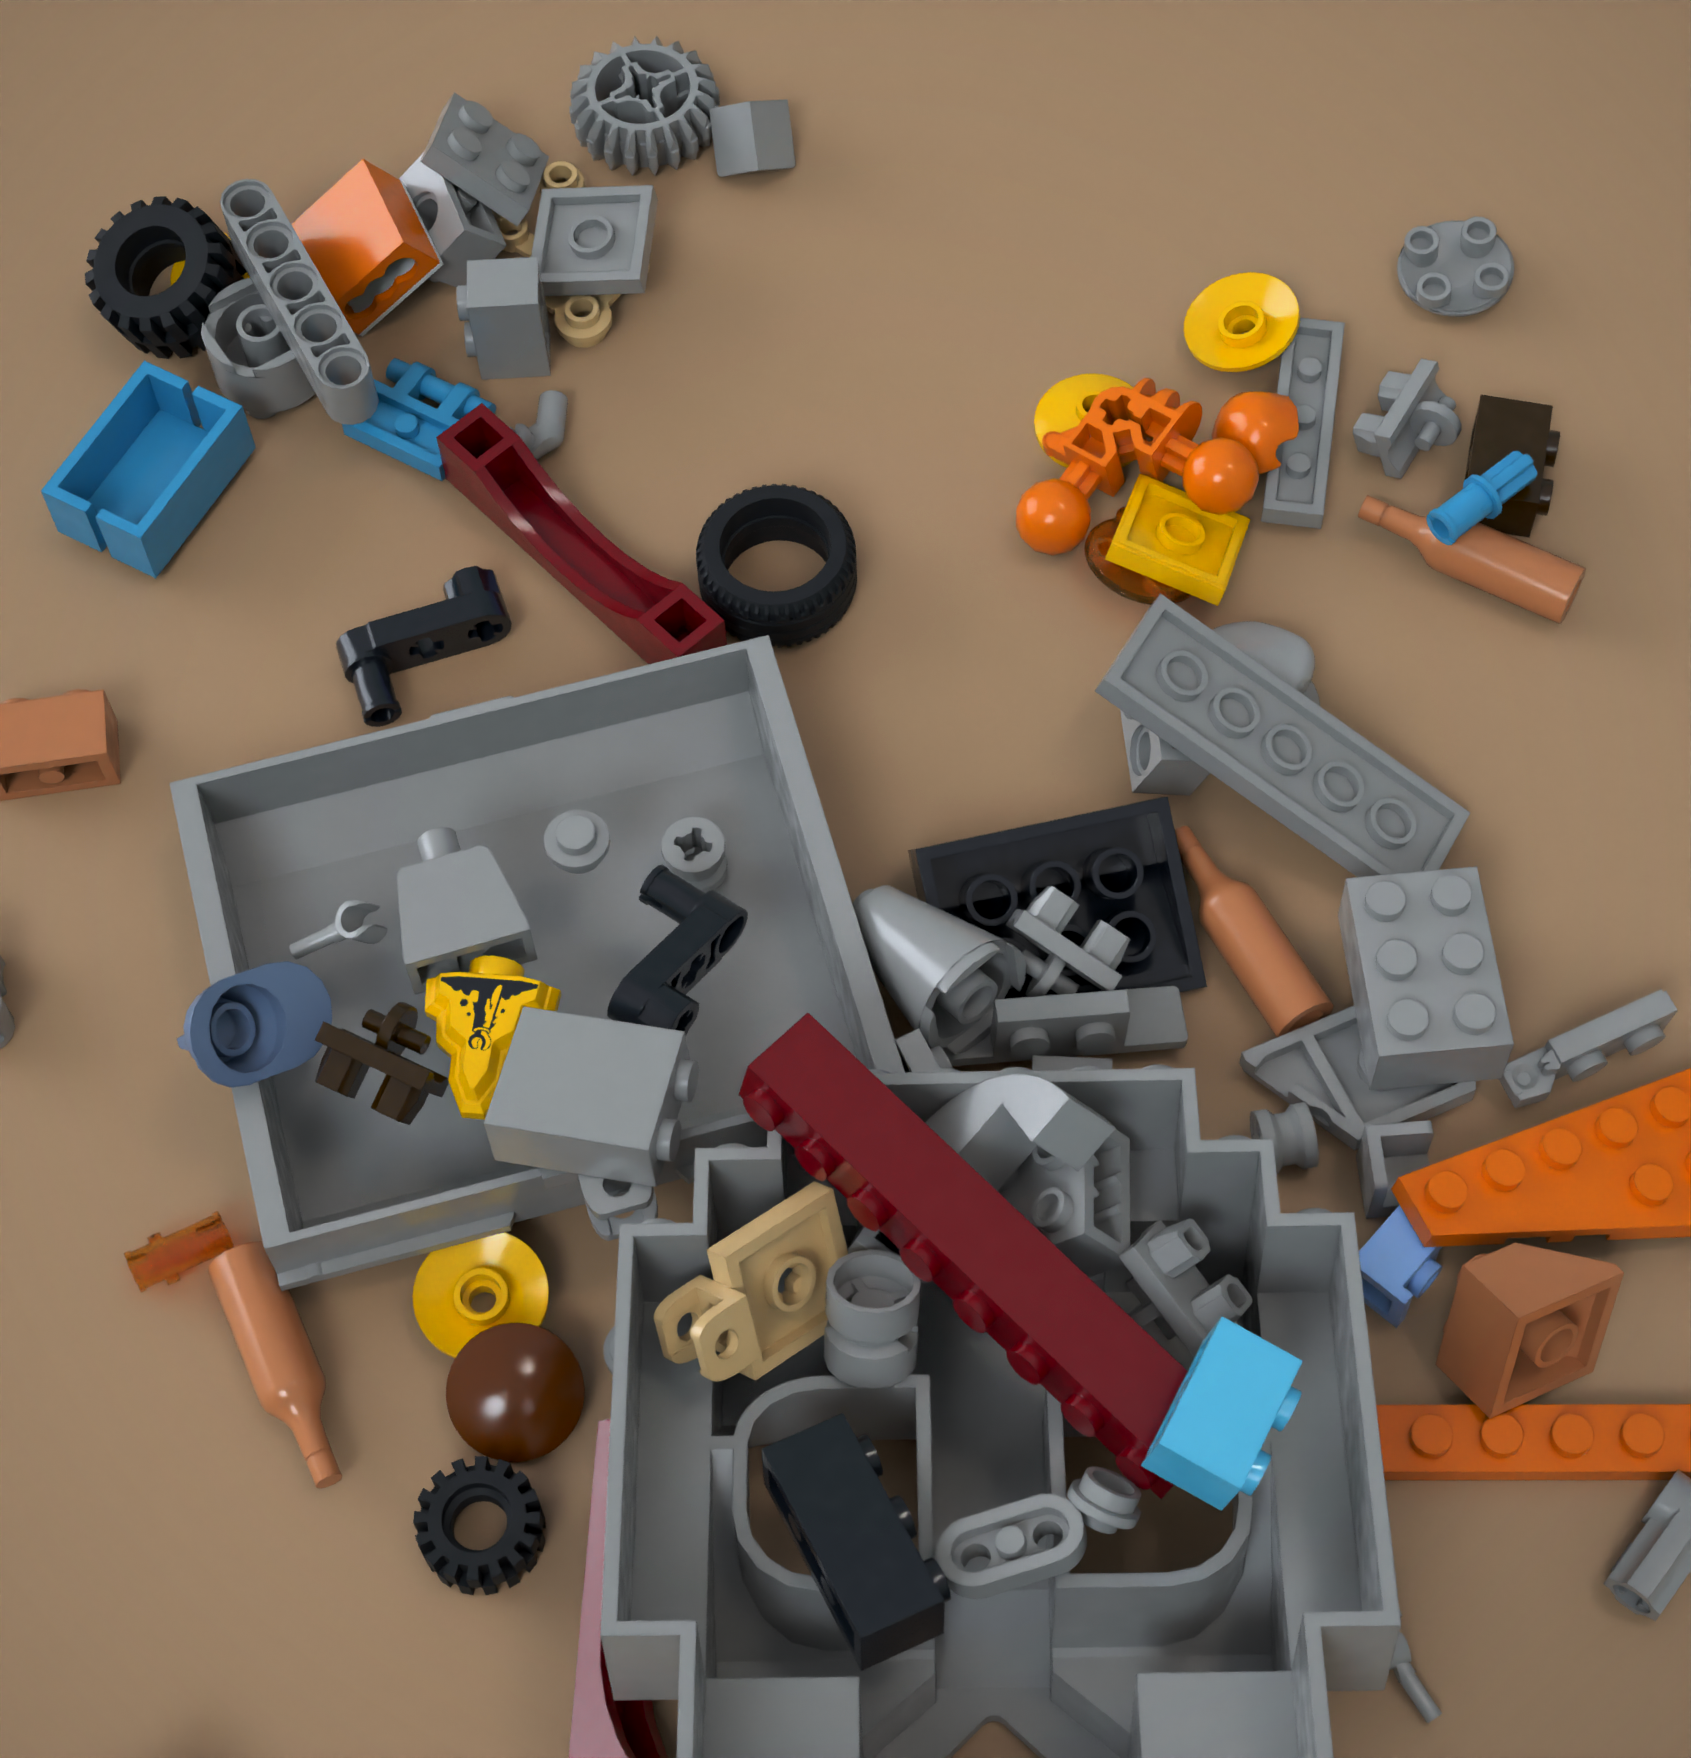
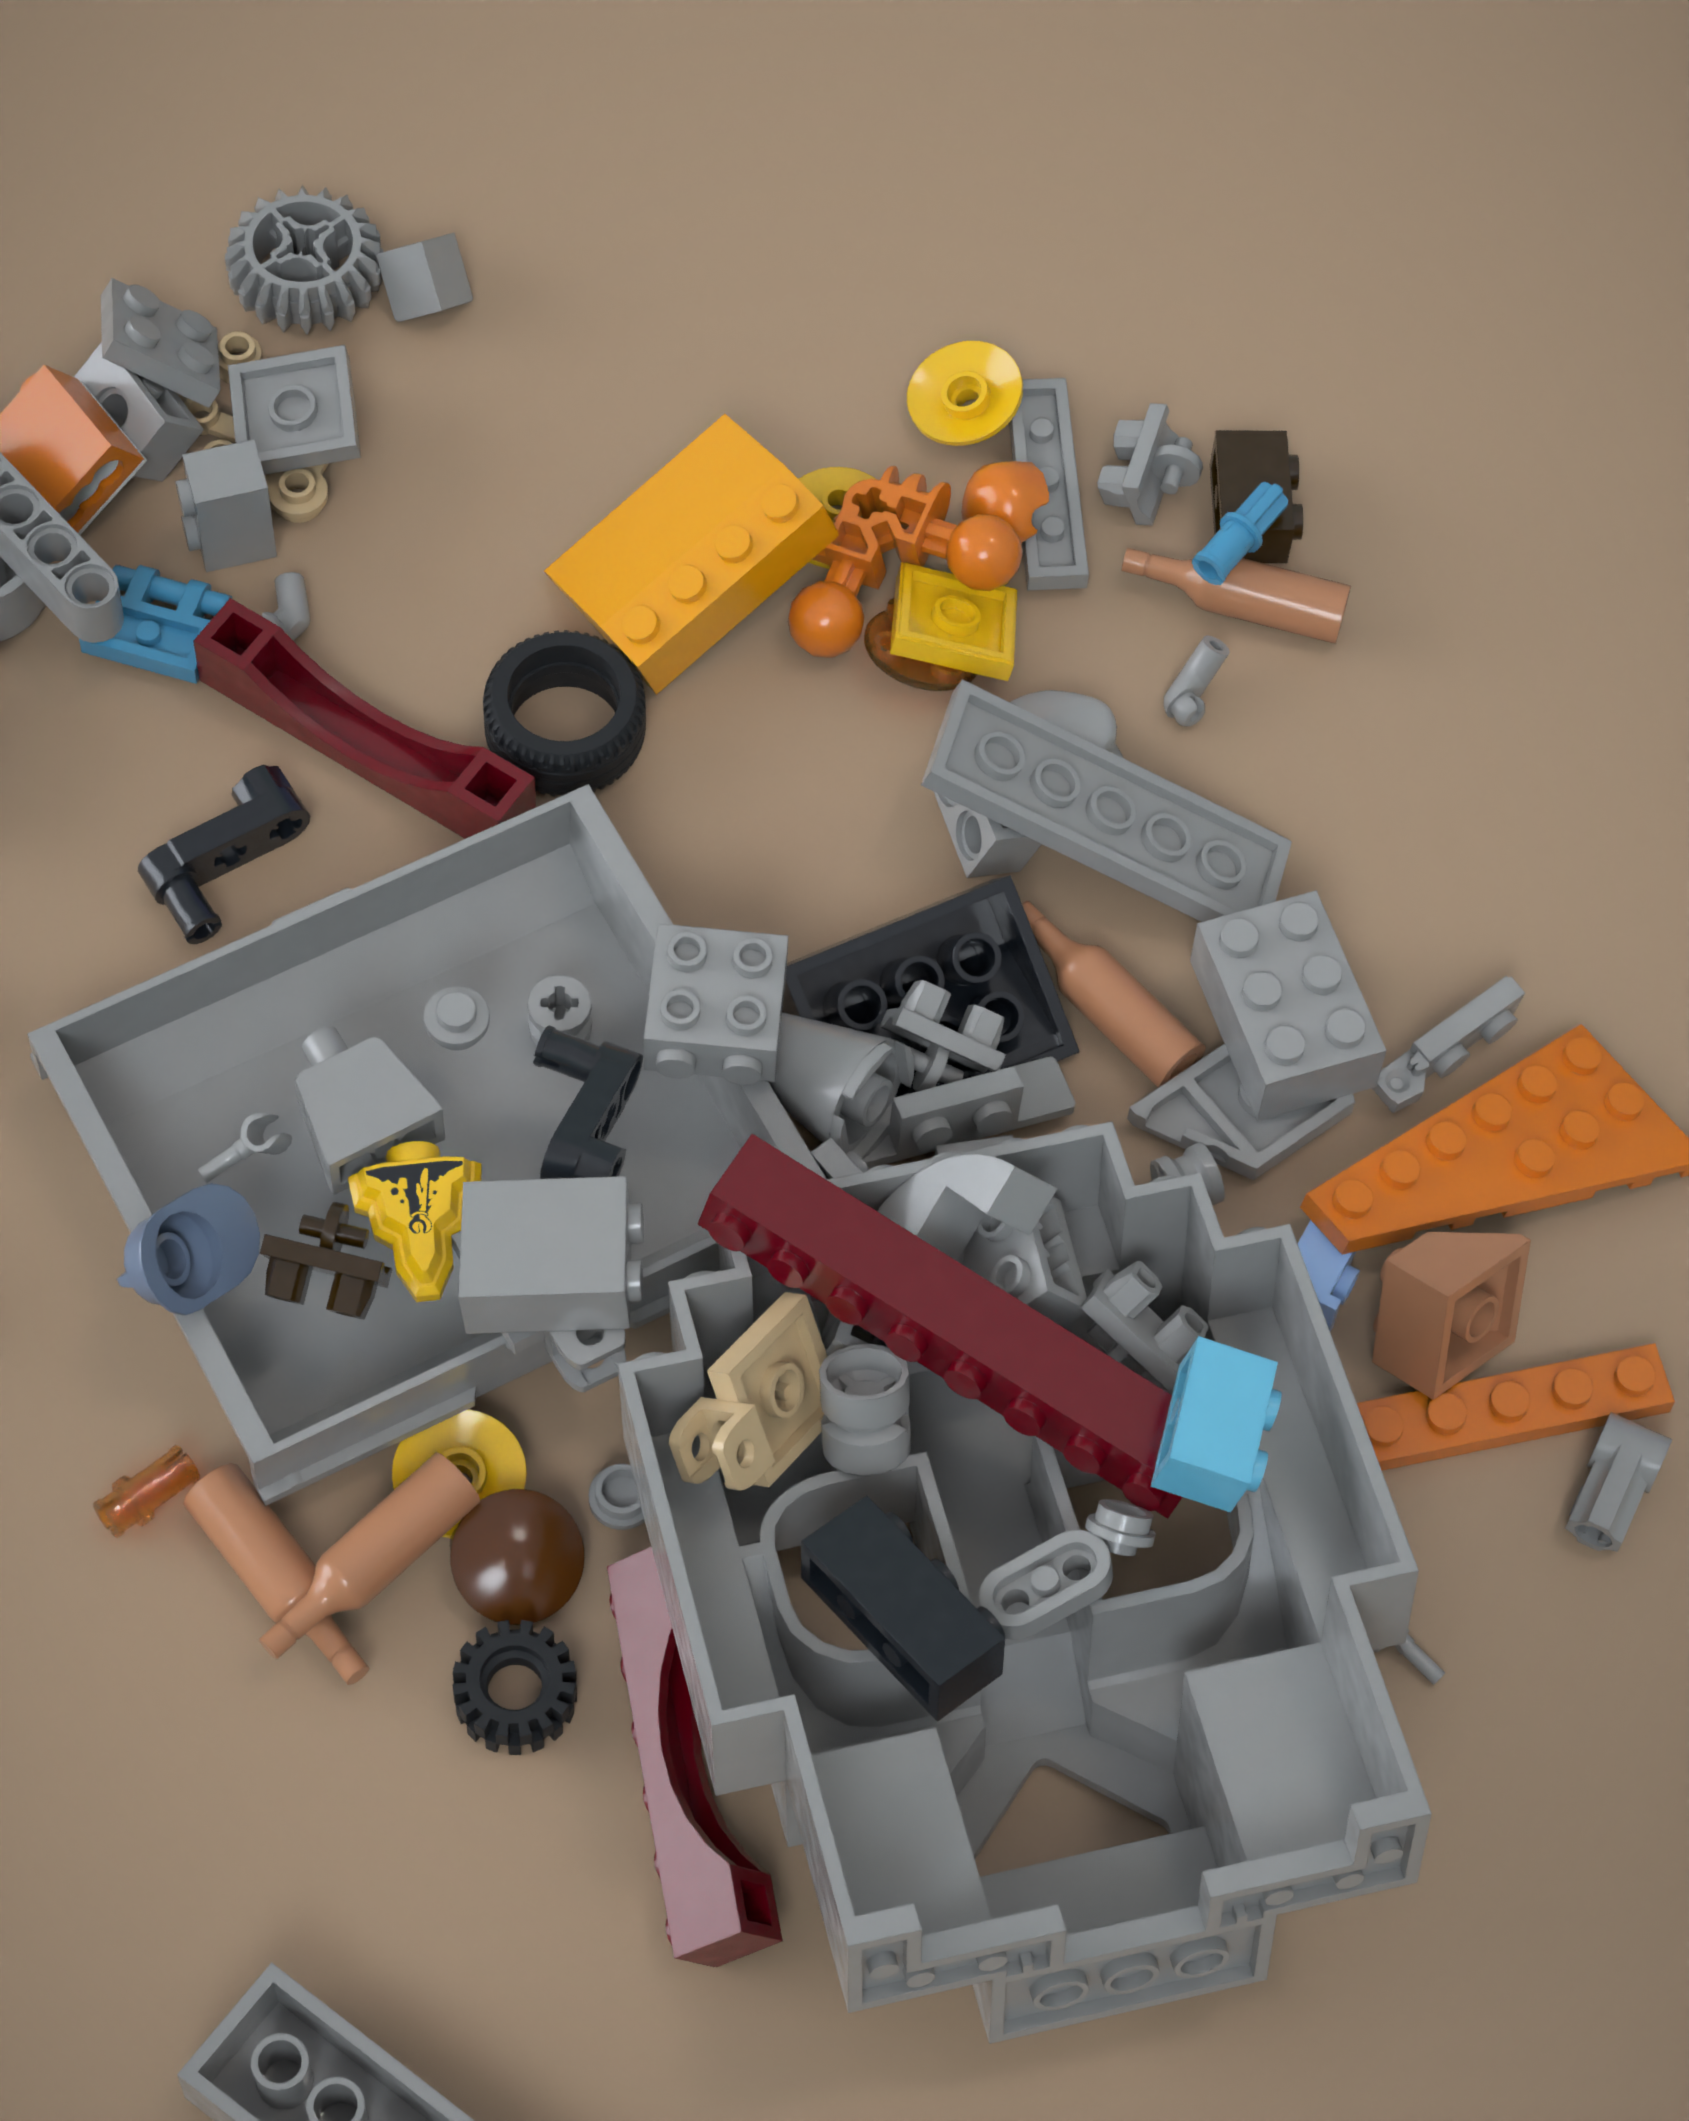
camera: 20 degrees left, 0 degrees up
(374, 1358) = (379, 1548): none -> nougat piece
(830, 873) = (715, 1003): none -> light grey brick
(937, 432) = (693, 551): none -> light orange slope
(1385, 1155) = (1286, 1178): light grey panel -> none
(1394, 649) = (1184, 694): none -> light grey arm
(1455, 267) = (1159, 304): light grey dish -> none

